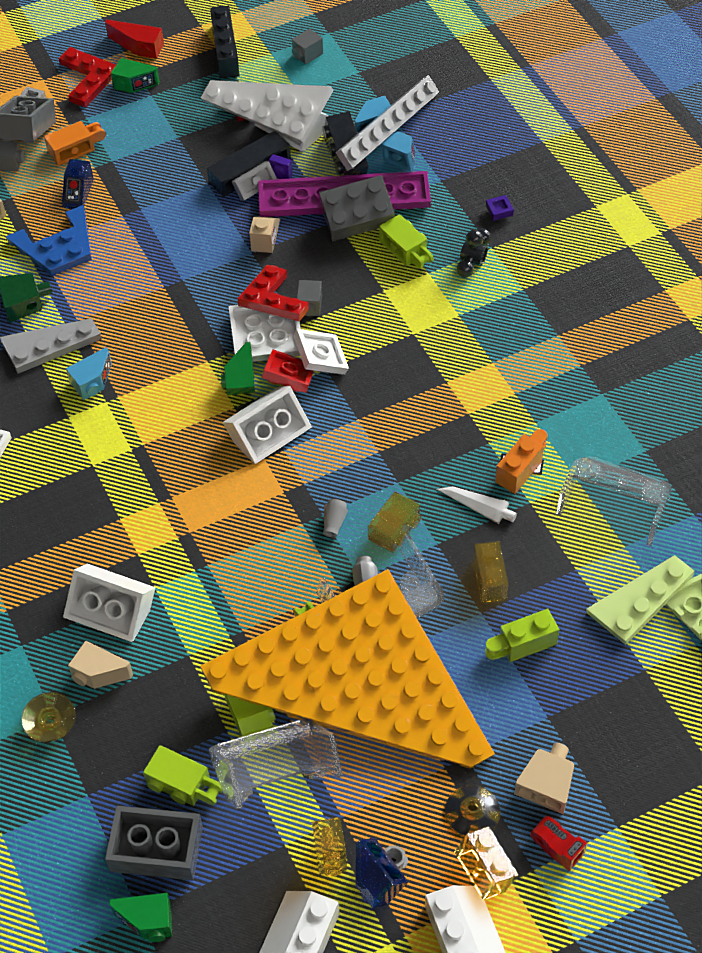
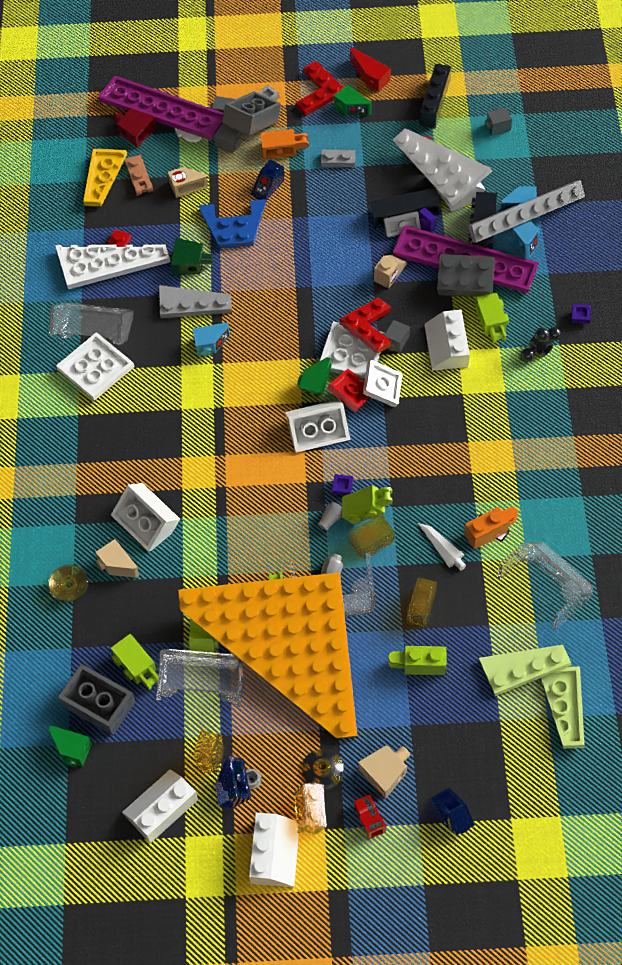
camera: 25 degrees right, 5 degrees up
(145, 138) = (338, 158): none -> light grey plate
(330, 478) = (342, 484): none -> dark purple plate
(370, 283) = (447, 341): none -> white slope
(372, 486) = (365, 504): none -> lime brick
(652, 793) = (453, 811): none -> clear blue slope

